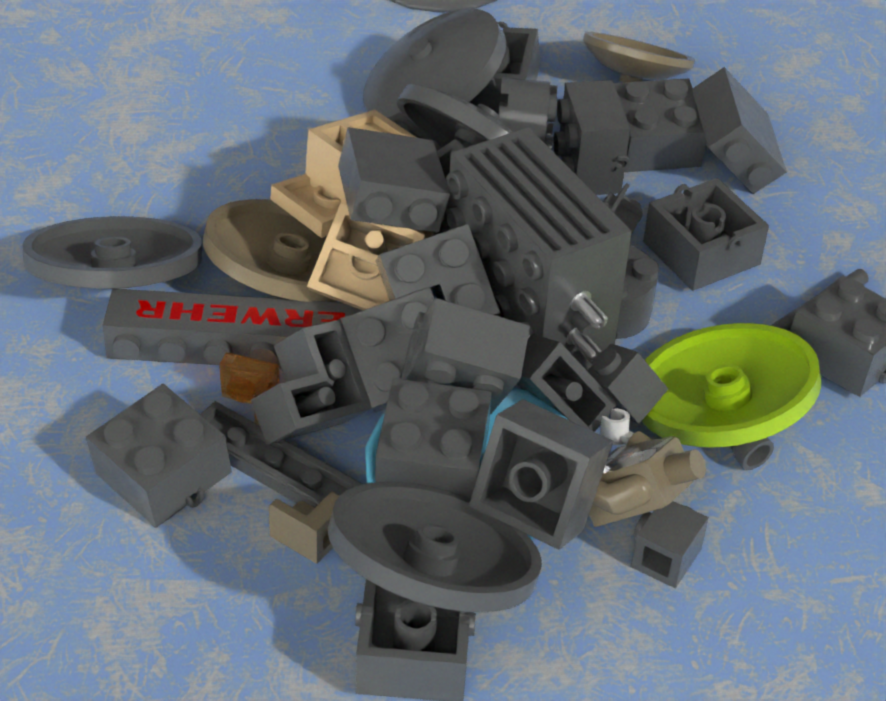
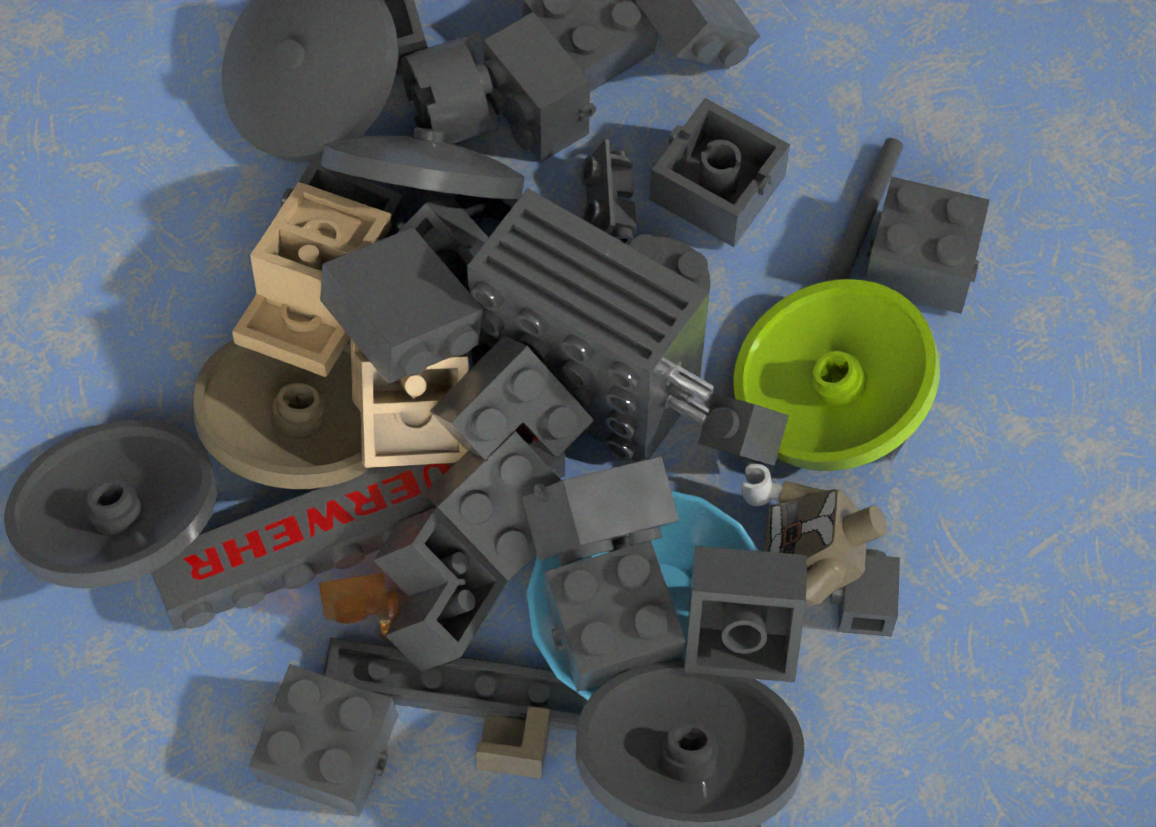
camera: 25 degrees left, 20 degrees up
(563, 383) = (692, 468): dark grey brick -> none

